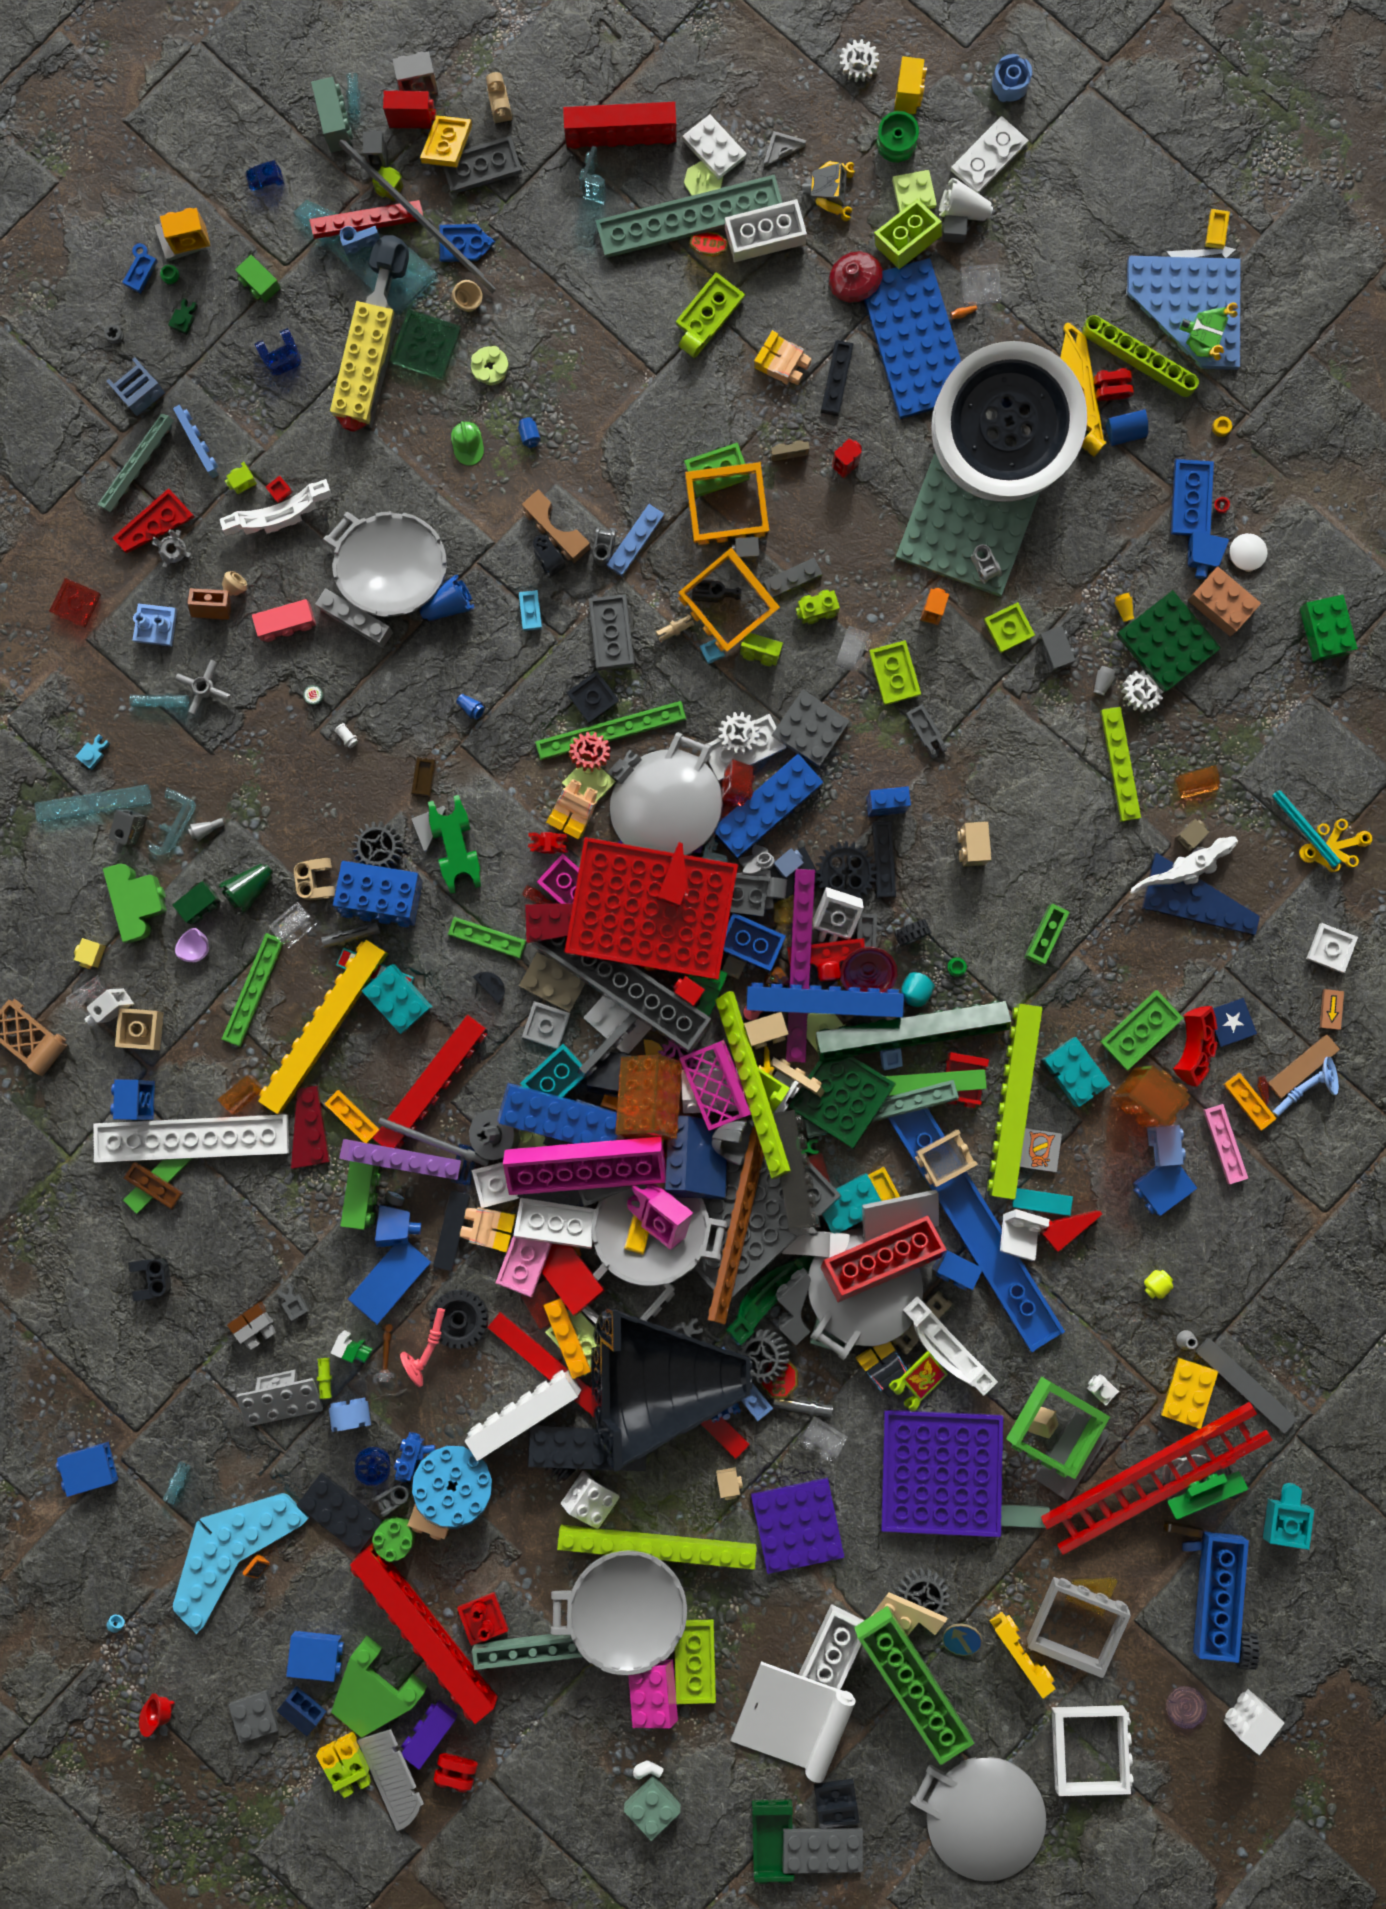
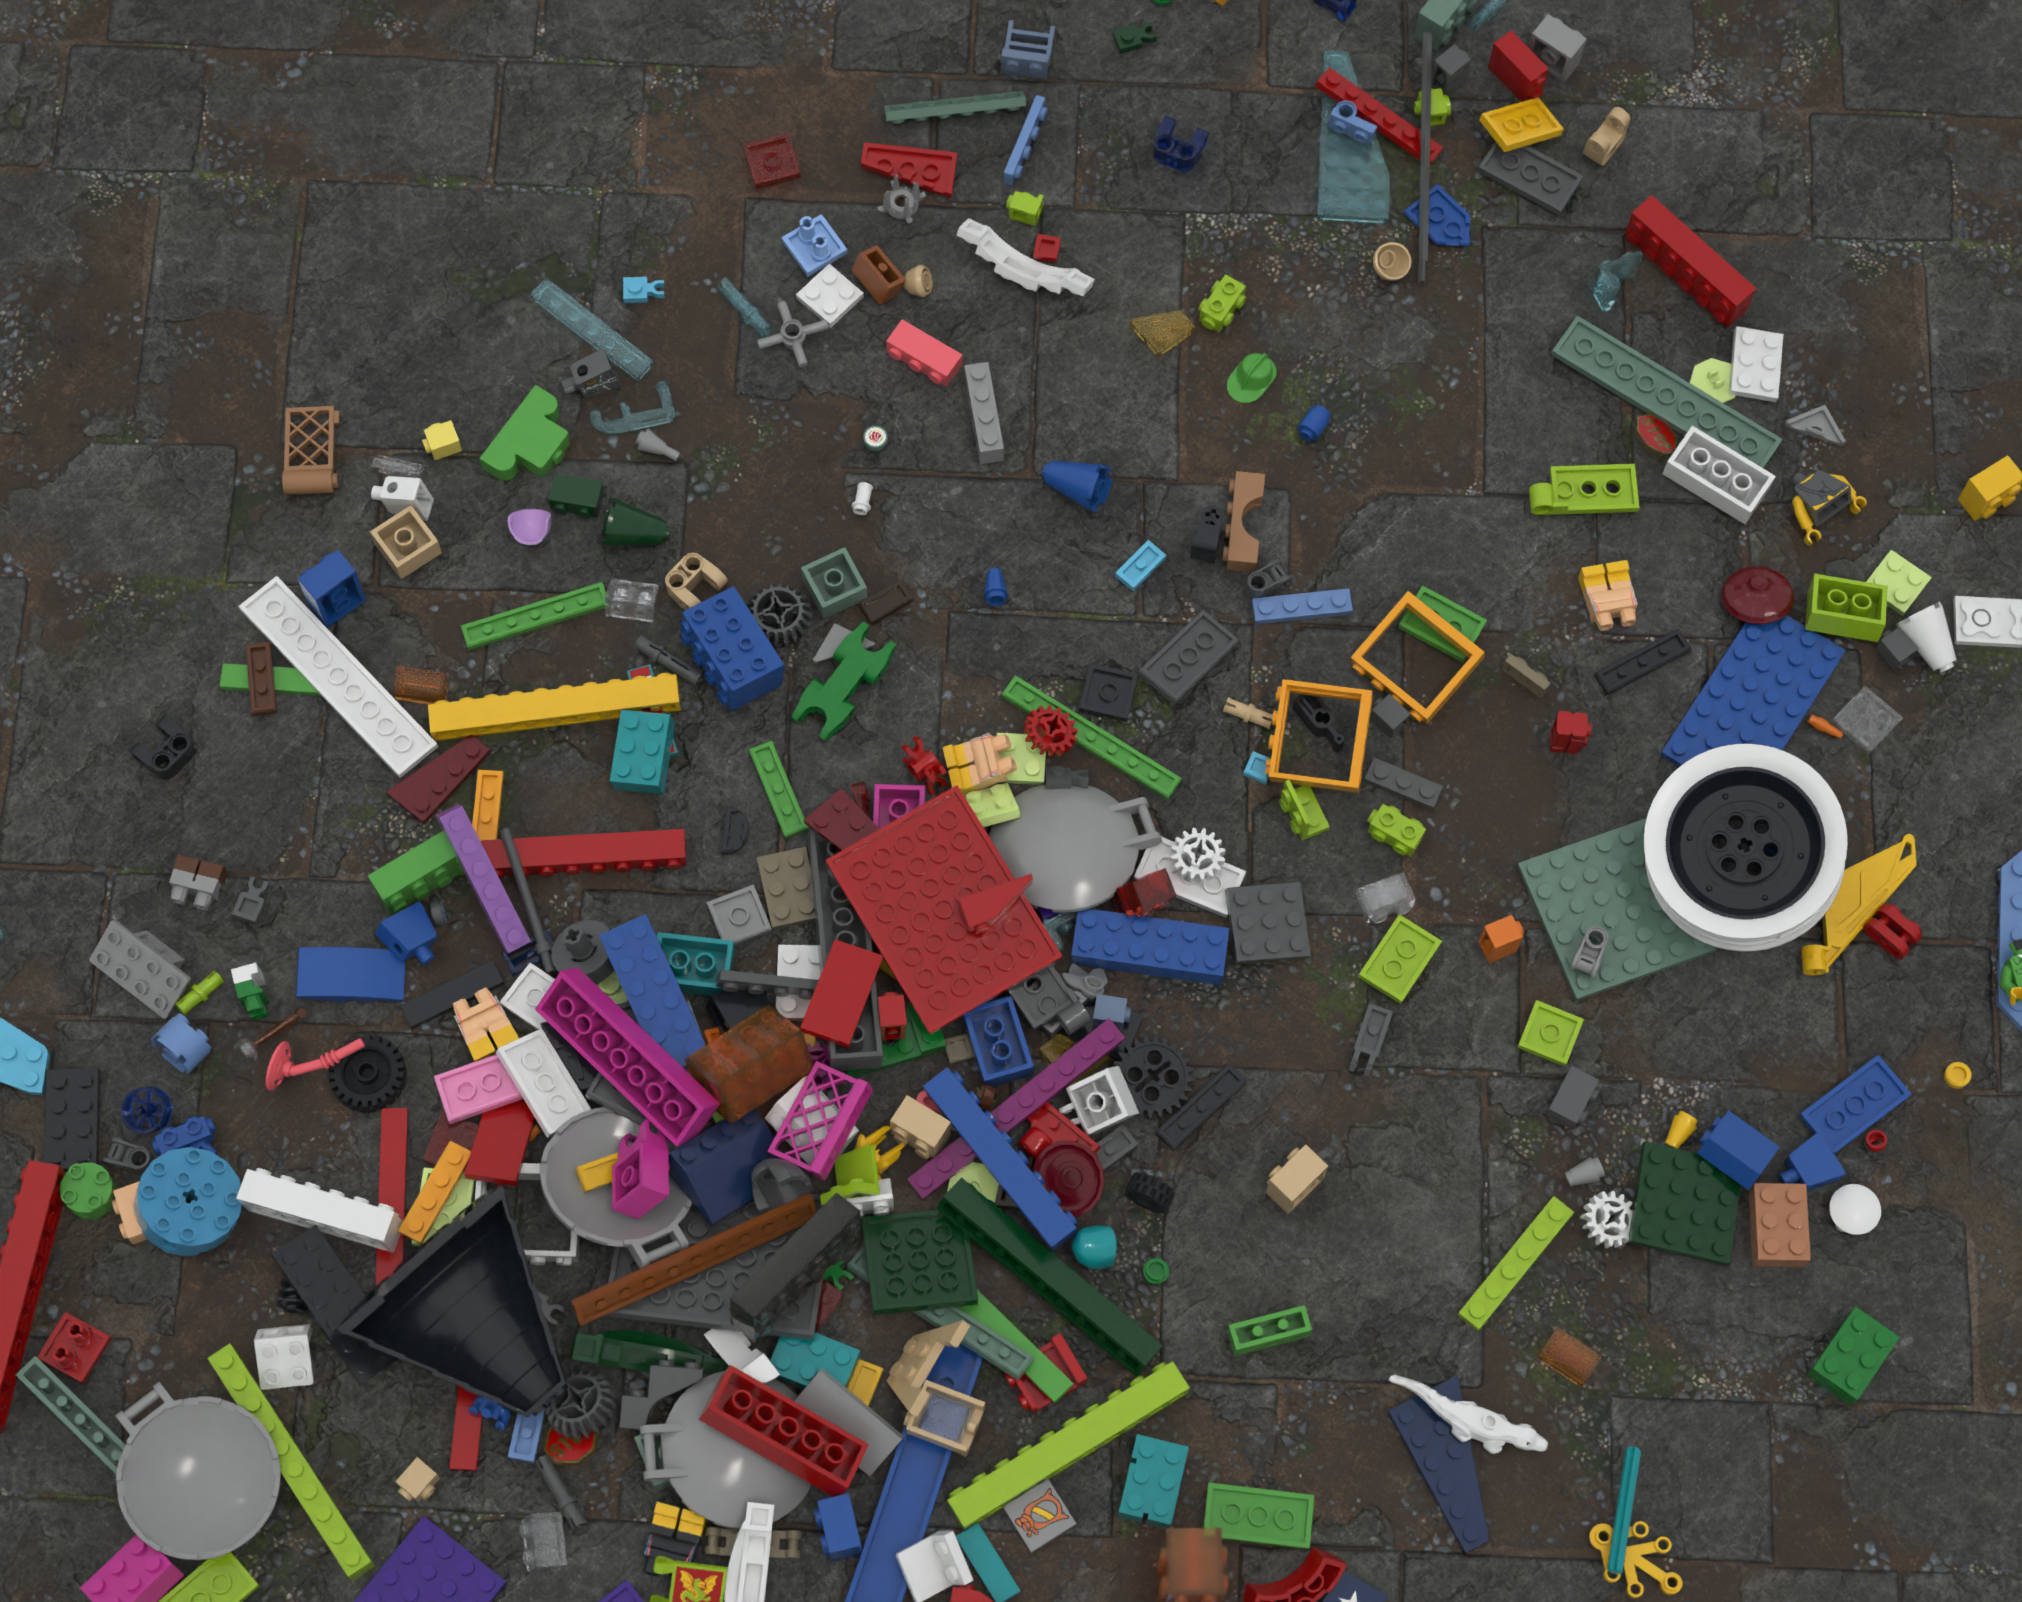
camera: 45 degrees right, 15 degrees down
(195, 643) = (829, 295): none -> white plate
(257, 278) = (1230, 70): bright green brick -> none
(369, 341) = (1263, 211): light yellow piece -> none
(387, 562) = (1065, 397): light grey dish -> none
(387, 798) = (834, 583): none -> sand green brick
(391, 467) = (1163, 330): none -> clear yellow wing
(407, 424) = (1224, 300): none -> lime brick
(425, 344) = (1310, 264): clear green plate -> none
(480, 360) = (1343, 324): yellowish green plate -> none
(605, 823) = (993, 804): none -> yellowish green plate
(653, 1010) = (841, 993): none -> red tile
(752, 1085) = (849, 1154): lime plate -> none
(798, 1075) = (901, 1199): tan plate -> none
(859, 60) = (1981, 421): white gear -> none
(888, 801) = (1261, 1055): blue brick -> none
(891, 1058) = (1002, 1281): medium blue plate -> none
(897, 136) = (1932, 520): green wheel -> none
(901, 1149) = (917, 1361): none -> tan wing
(1127, 427) = (1864, 980): blue brick -> none
(1136, 347) = (1944, 943): lime beam -> none
(1165, 585) = (1737, 1149): none -> blue brick
(1192, 834) = (1510, 1396): dark tan brick -> none

